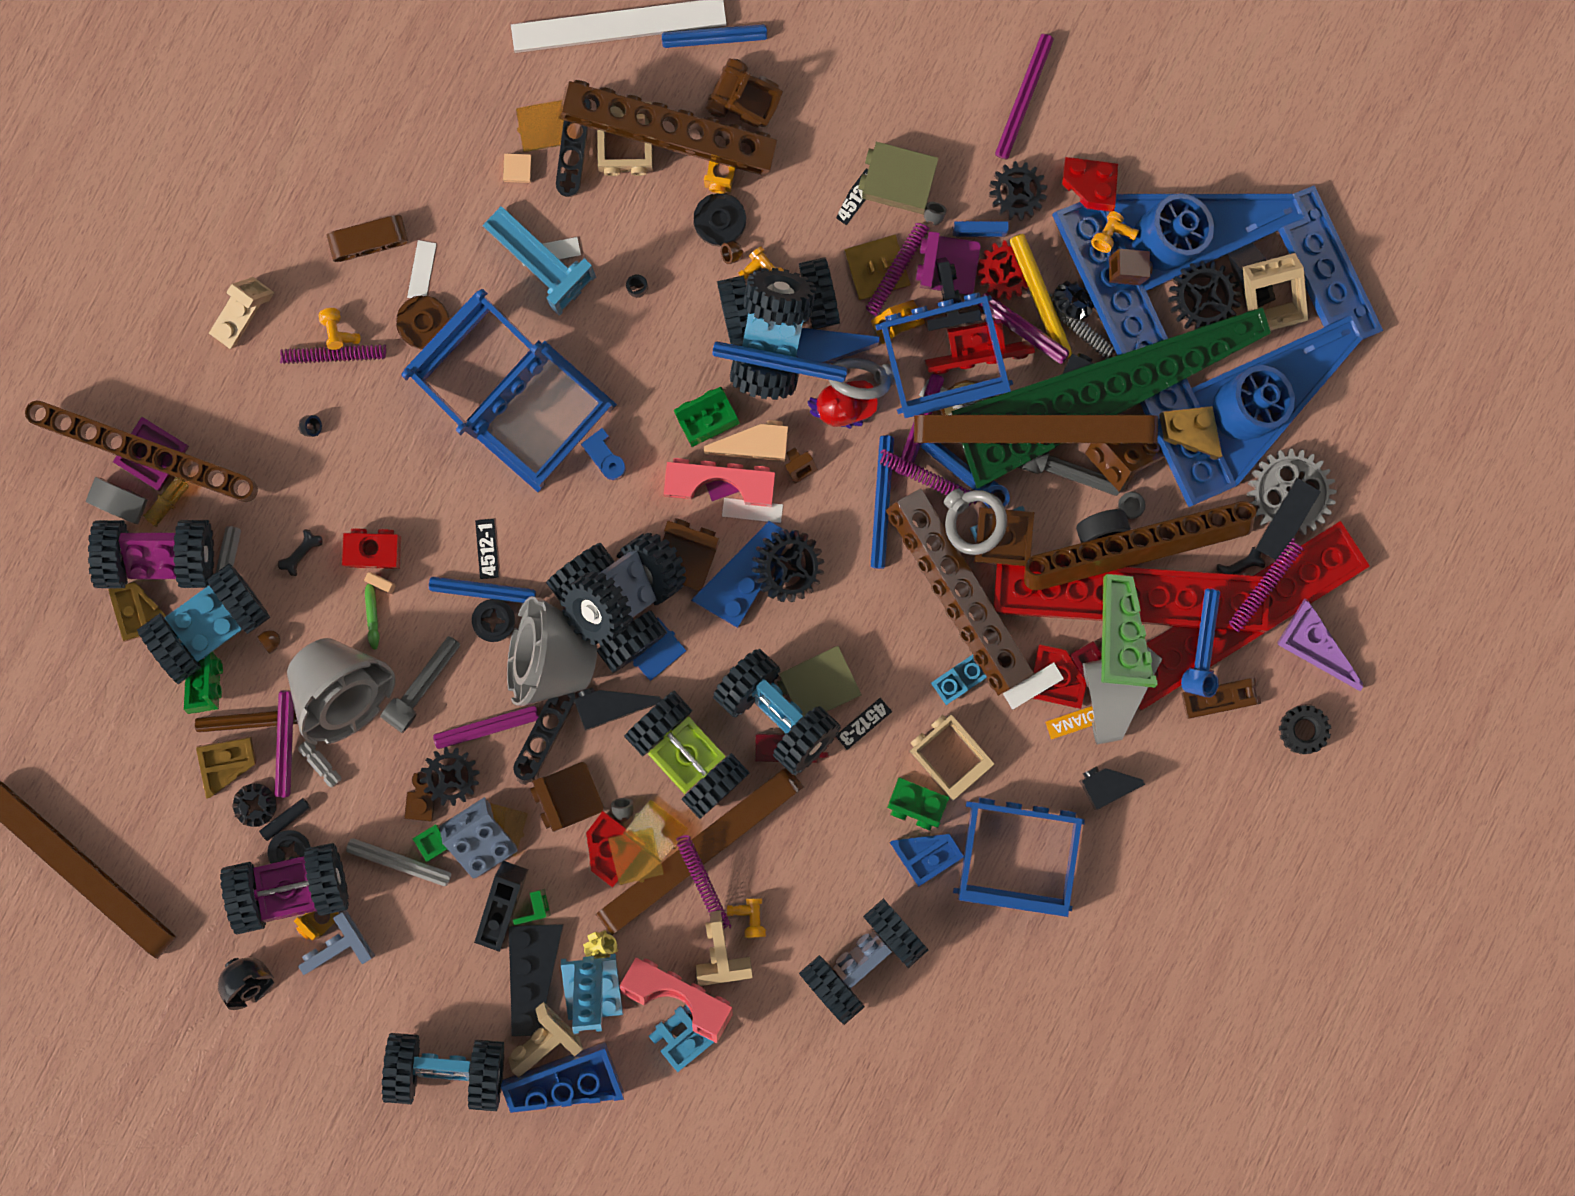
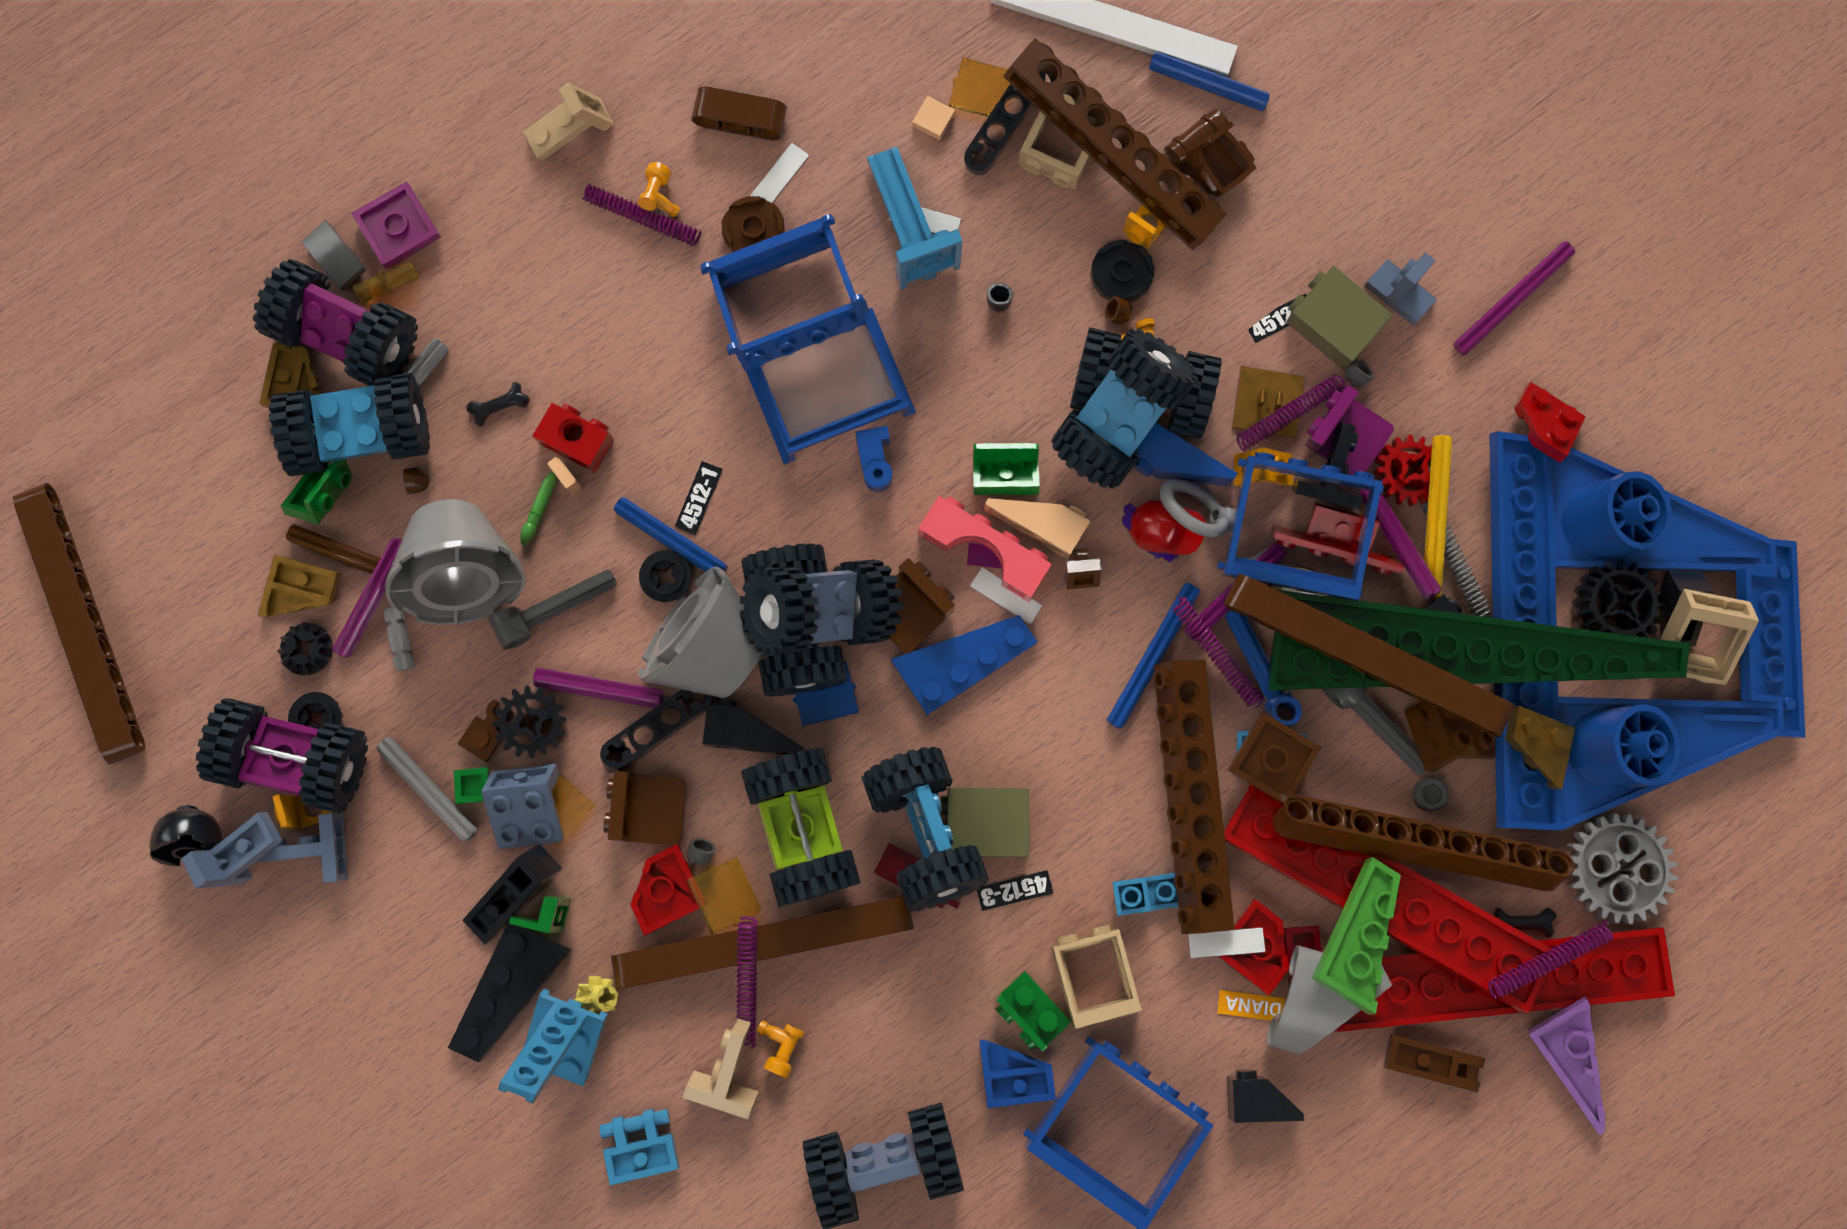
camera: 25 degrees right, 5 degrees down
(129, 446) = (375, 202): reddish brown beam -> none
(285, 819) = (329, 680): black piece -> none
(287, 978) = (230, 859): none -> sand blue bracket
(310, 420) = (581, 271): black hinge -> none
(404, 1065) = (310, 1018): black plate -> none
(543, 1041) = (475, 1072): tan bracket -> none
(565, 1082) = (479, 1132): blue wedge -> none
(636, 856) = (687, 913): clear yellow piece -> none
(647, 982) = (626, 1064): coral arch -> none
(779, 361) = (1117, 442): blue axle -> none
(782, 574) = (1027, 667): black gear -> none
(937, 132) = (1401, 287): none -> sand blue bracket
(958, 503) = (1240, 695): light grey piece -> none
(980, 229) = (1402, 413): blue tile -> none
(1010, 183) = (1461, 378): black gear -> none
(1077, 310) = (1475, 549): black gear -> none
(1102, 525) = (1391, 799): black tyre -> none
(1103, 240) = (1536, 488): light orange piece -> none
(1130, 267) = (1552, 529): reddish brown brick -> none
(1200, 679) = (1424, 1029): blue axle -> none
(1287, 519) = (1607, 896): black tile -> none
(1288, 729) = (1535, 1154): black tyre -> none

